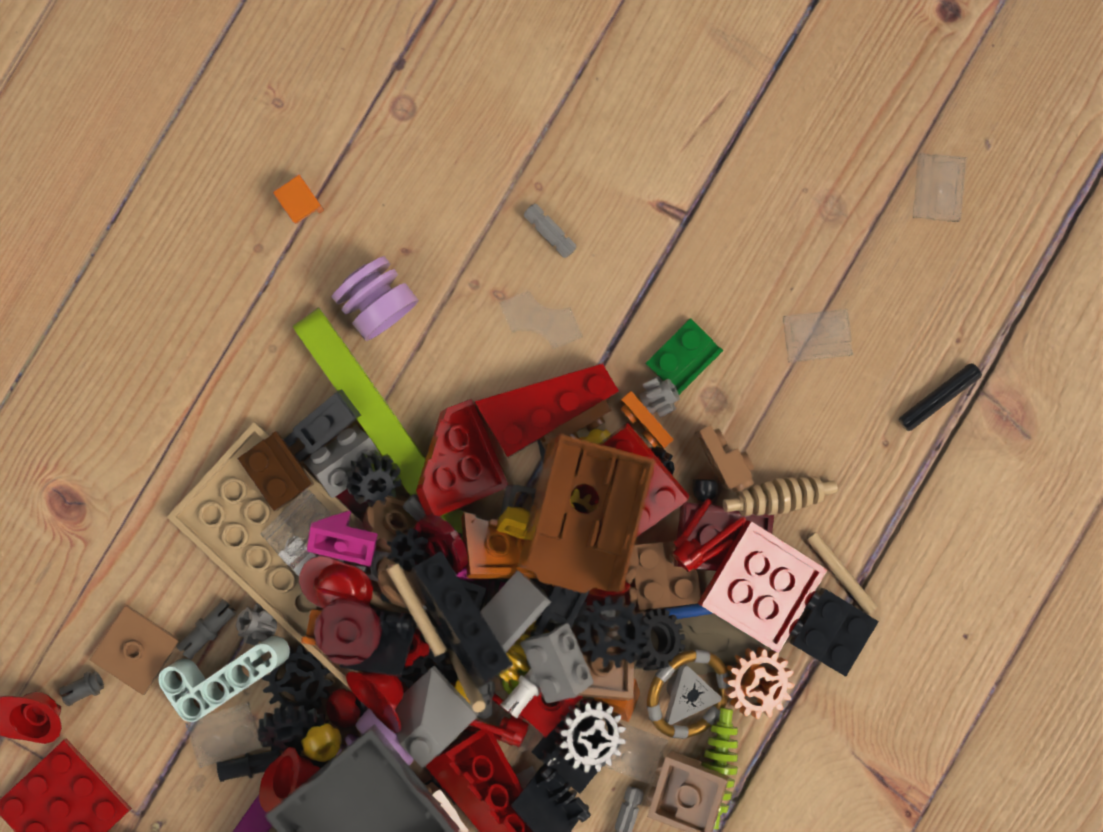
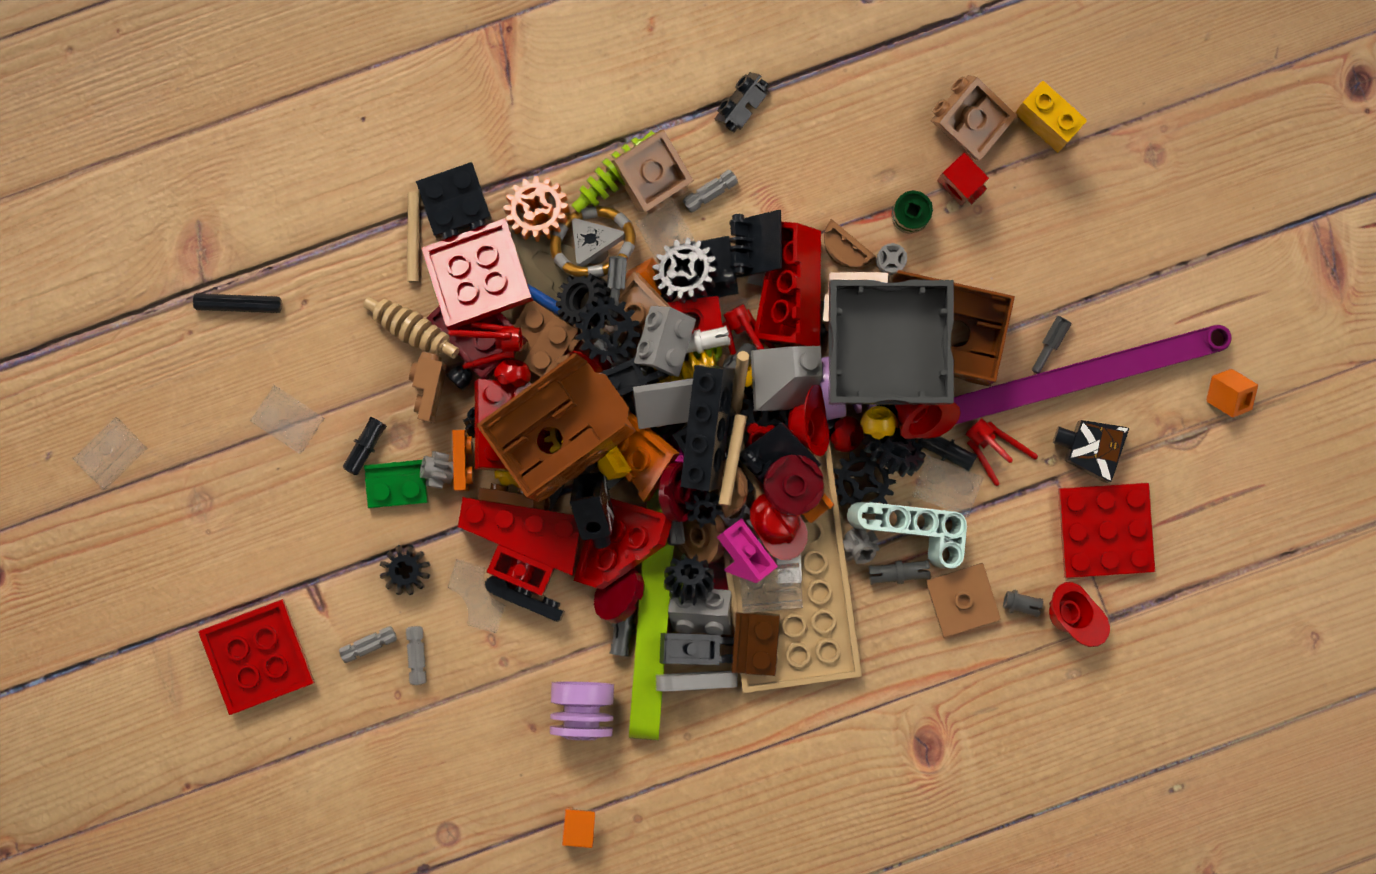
camera: 140 degrees left, 0 degrees up
(229, 803) = (983, 435): none -> red plant
(300, 399) = (696, 681): none -> light grey beam
(399, 396) = (621, 636): none -> dark grey pin
(419, 414) = (618, 599): none -> dark red tile
(500, 349) = (522, 597): none -> black hinge
(502, 471) = (592, 508): none -> black torso
(521, 370) = (520, 570): none -> red brick
(597, 206) = (367, 644): none -> light grey axle
(614, 281) = (409, 561): none -> black gear
(642, 682) = (616, 278): none -> dark grey axle
(663, 530) = (512, 372): none -> red plate
(679, 121) = (256, 657): none -> red plate
(736, 366) = (364, 446): none -> black axle

